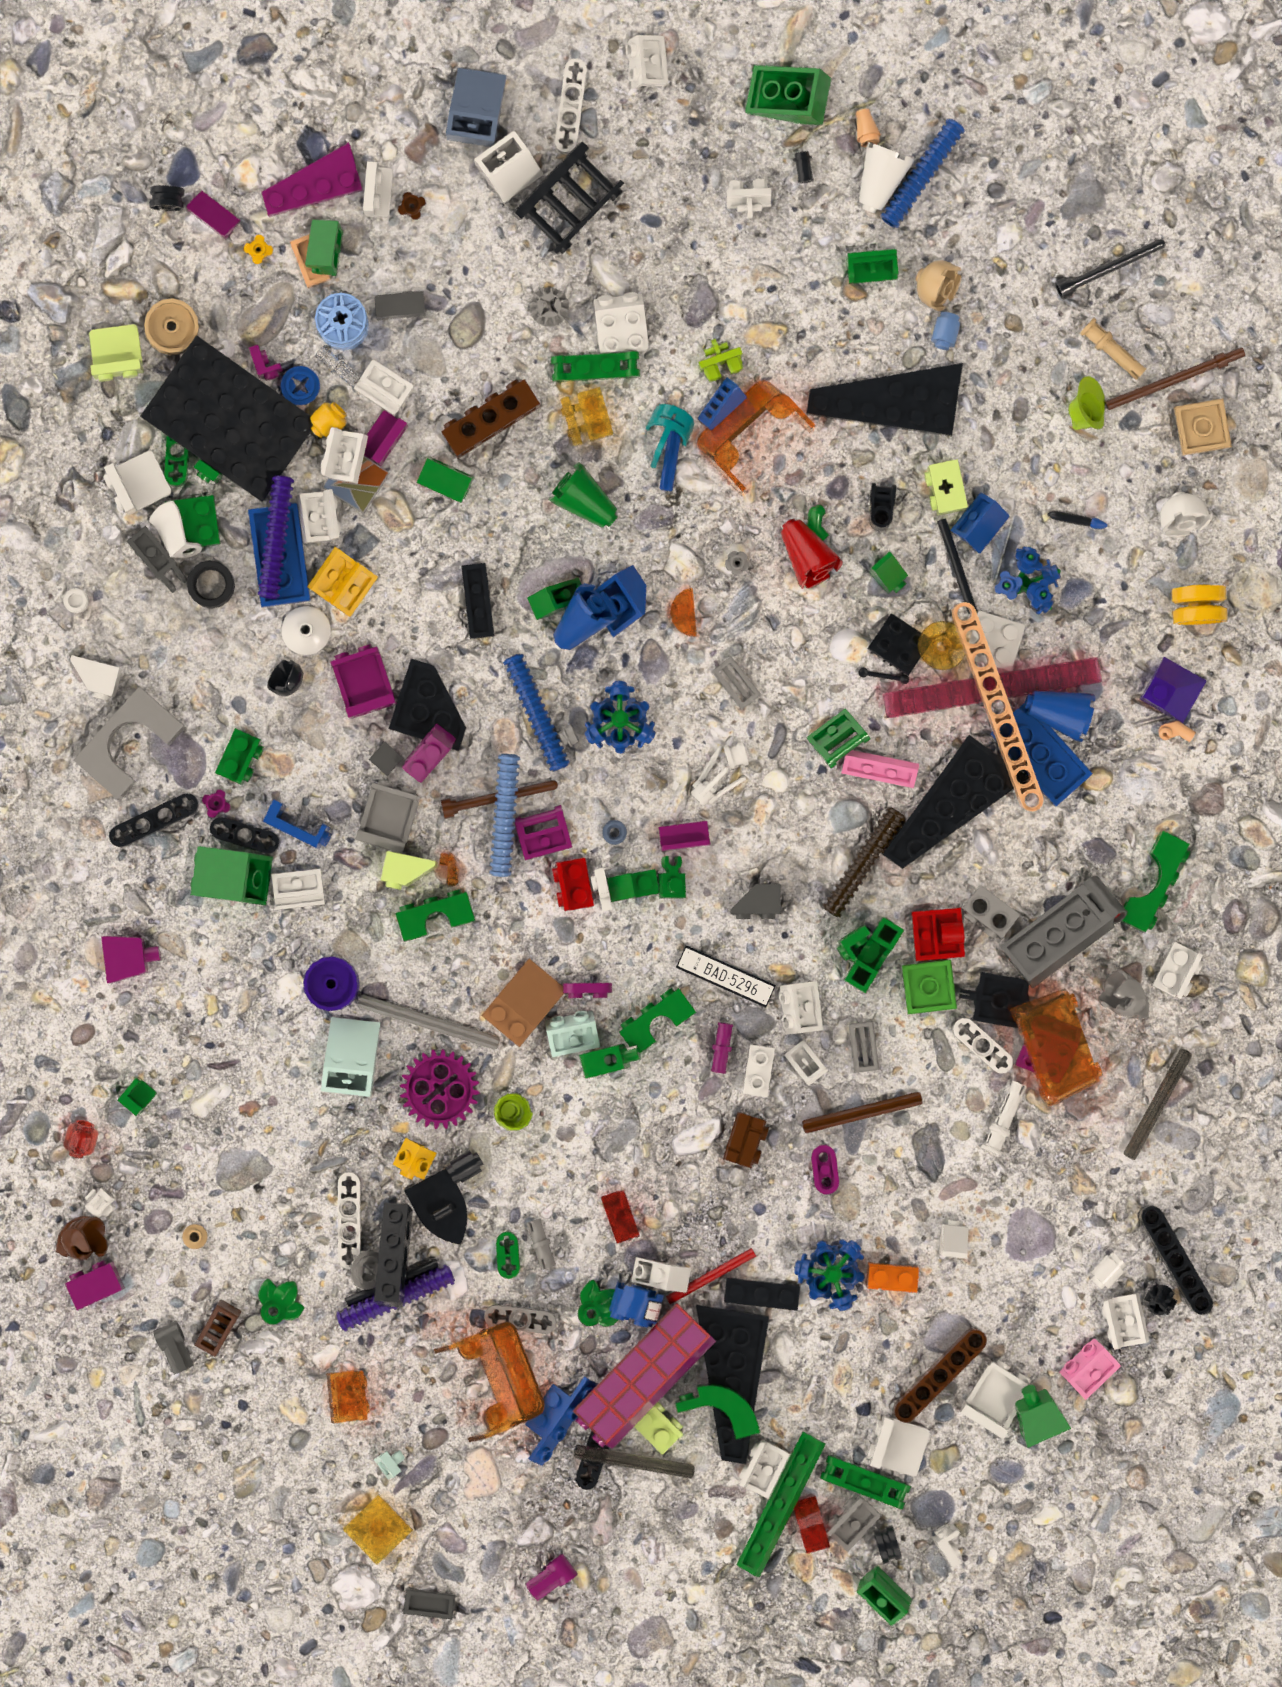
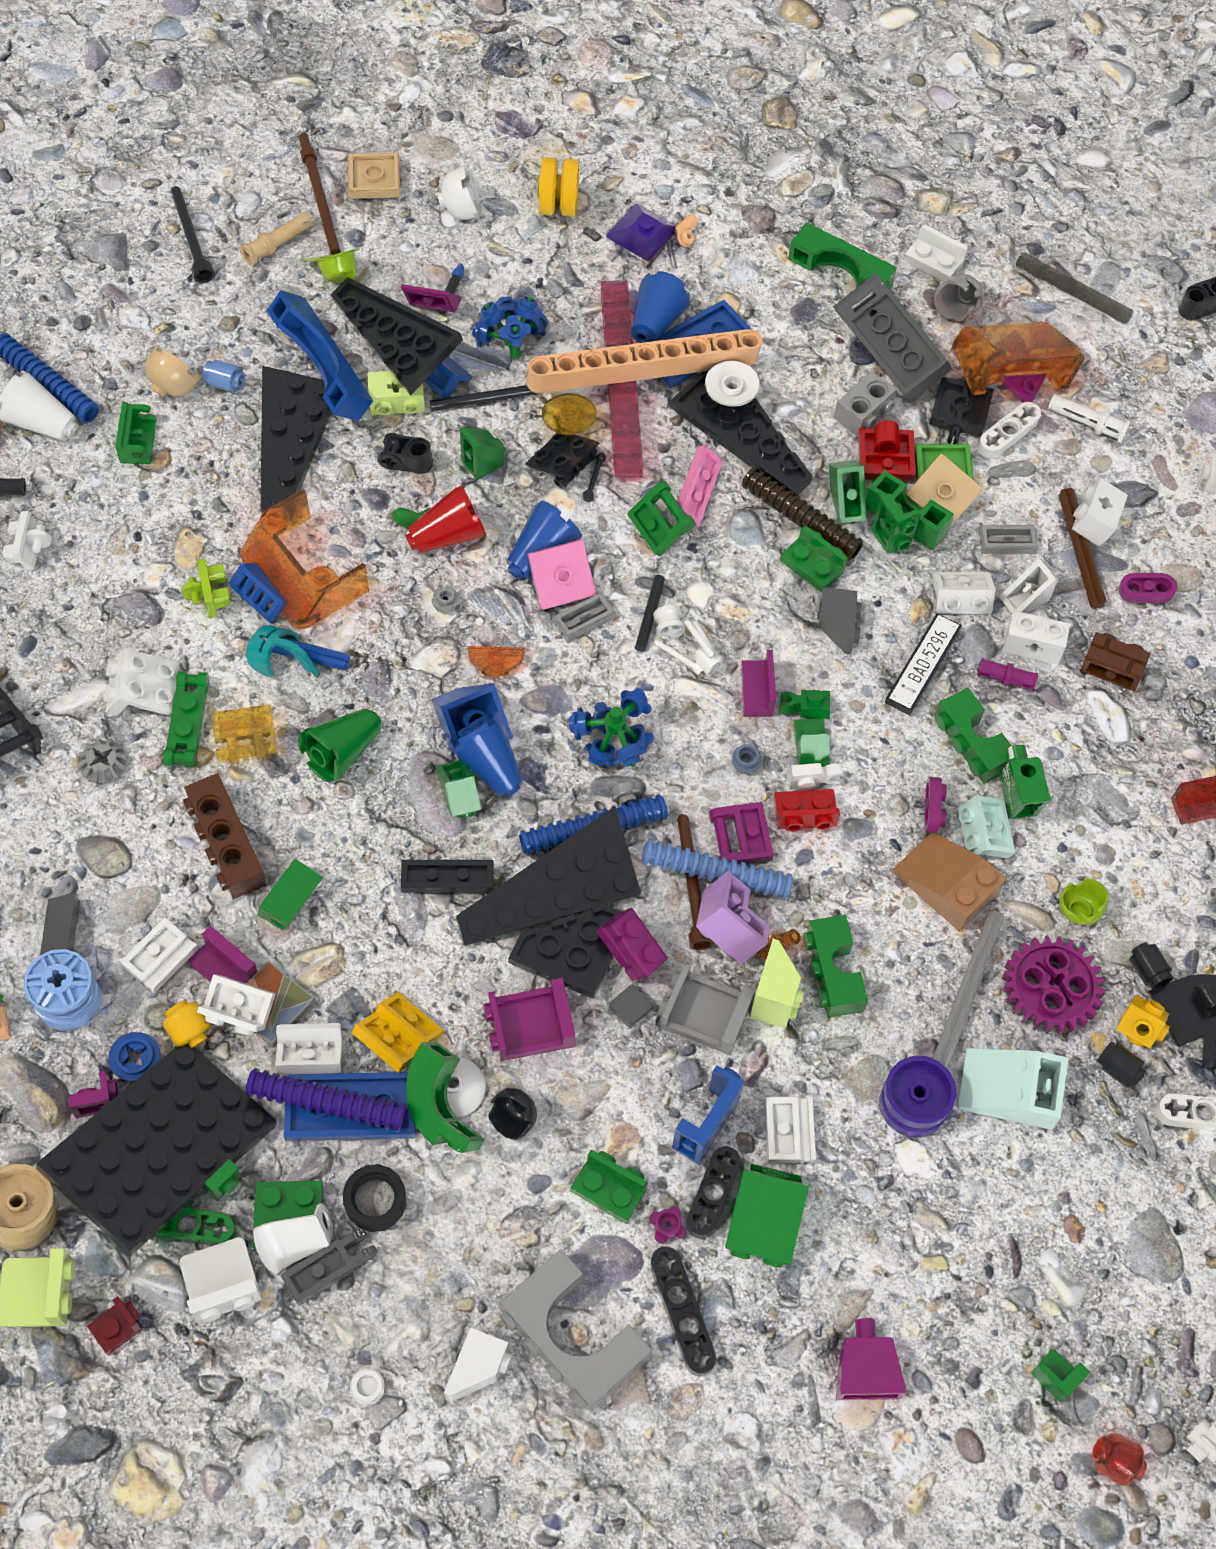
camera: 85 degrees left, 25 degrees down
(98, 414) = (115, 1325): none -> dark red bracket
(283, 615) = (428, 1099): none -> green arch
(379, 1143) = (1121, 1064): none -> black brick
(457, 826) = (729, 921): none -> lavender brick
(483, 696) = (570, 879): none -> black wing
(747, 738) = (648, 619): none -> black bar
(768, 658) = (561, 574): none -> bright pink plate
(800, 637) = (542, 530): none -> blue cone
(817, 875) = (815, 559): none -> green bracket
(892, 901) = (848, 490): none -> green slope
(898, 986) = (946, 486): none -> tan plate
(902, 1133) = (1099, 511): none -> white brick
(998, 483) = (400, 336): none -> black wing
(999, 788) = (732, 375): none -> white dish
(1010, 387) = (342, 387): none -> blue arch
(1059, 504) = (431, 298): none -> magenta slope

